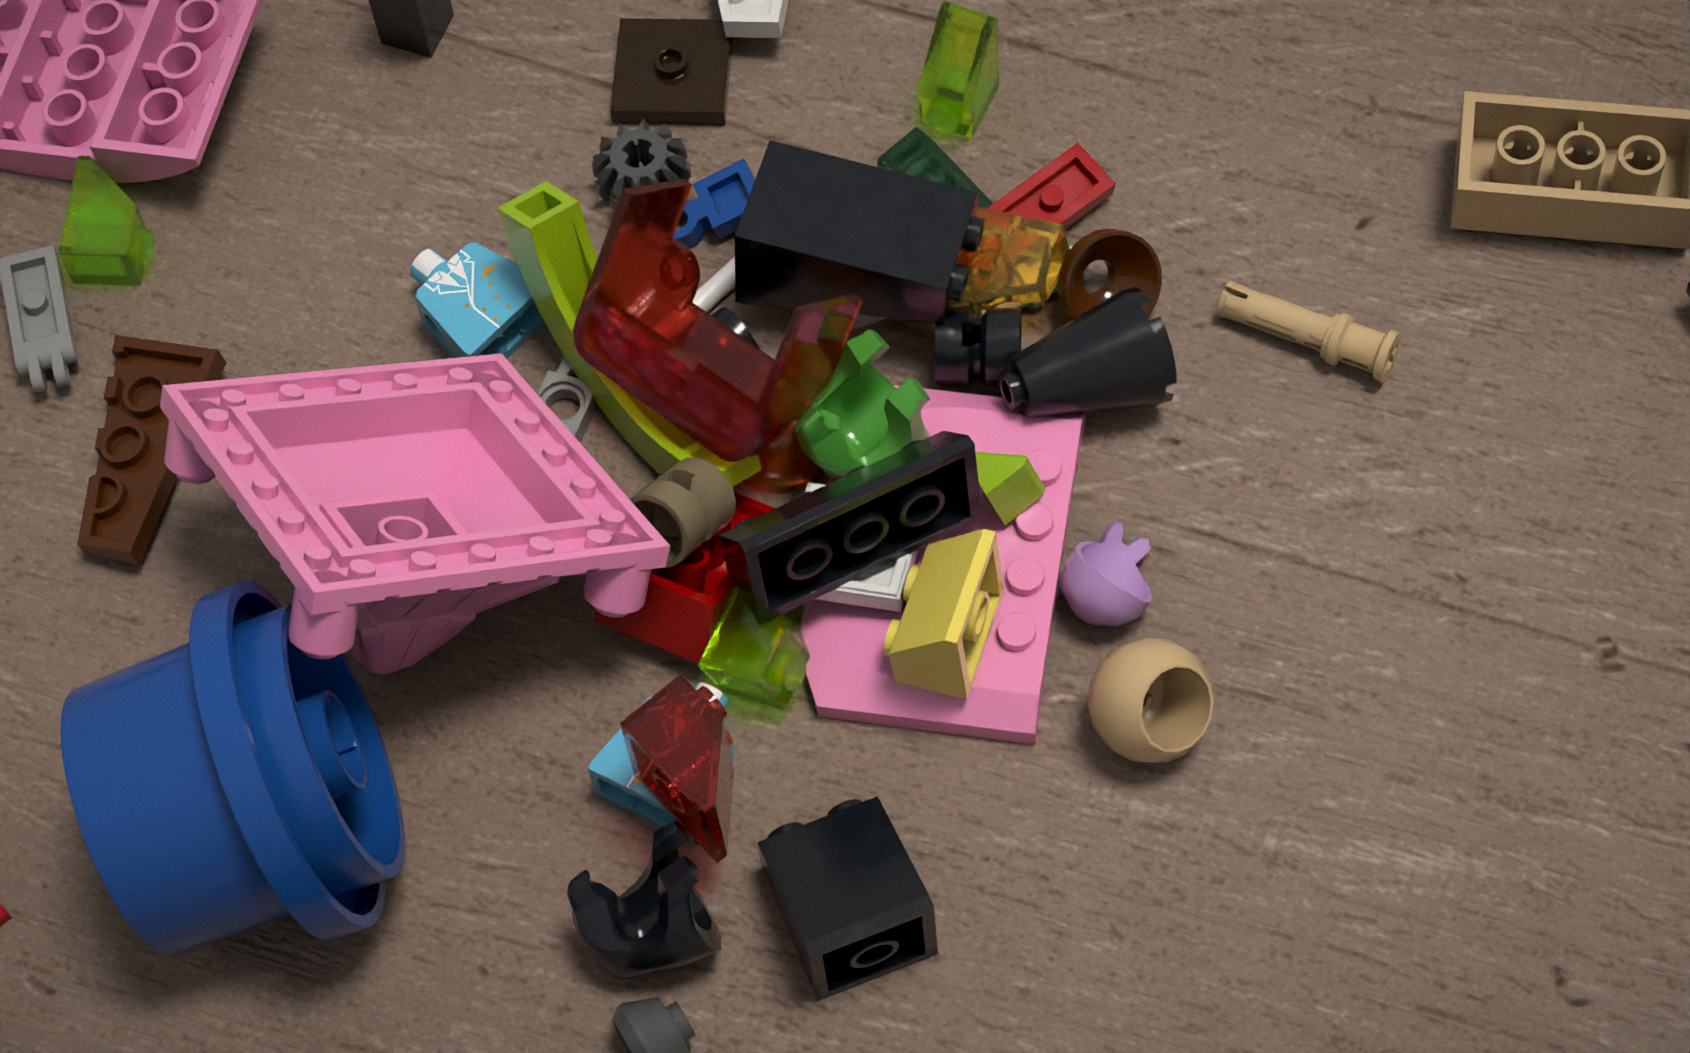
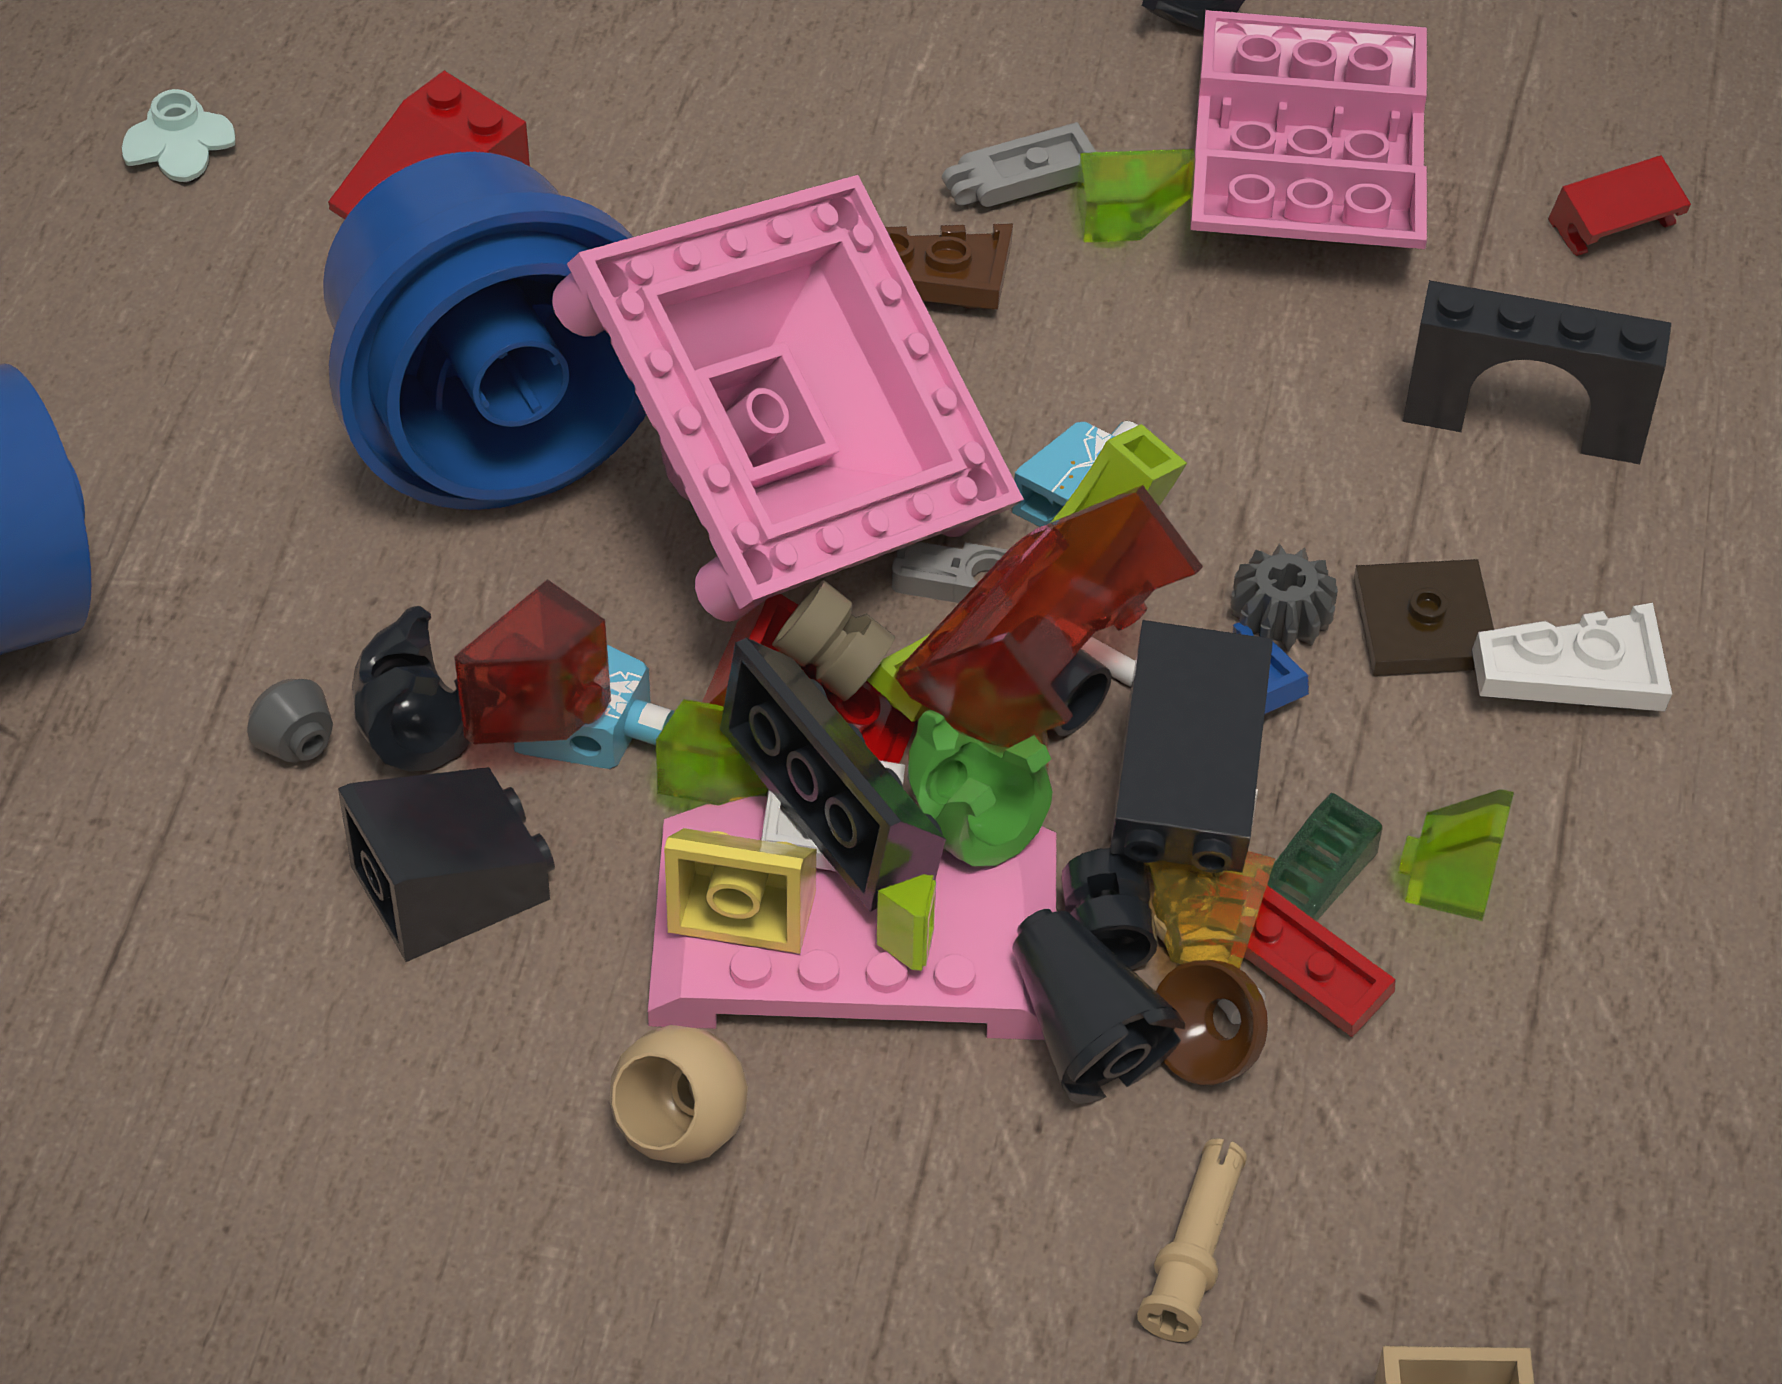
camera: 75 degrees right, 10 degrees down
(1104, 580) = (835, 1055): lavender piece -> none

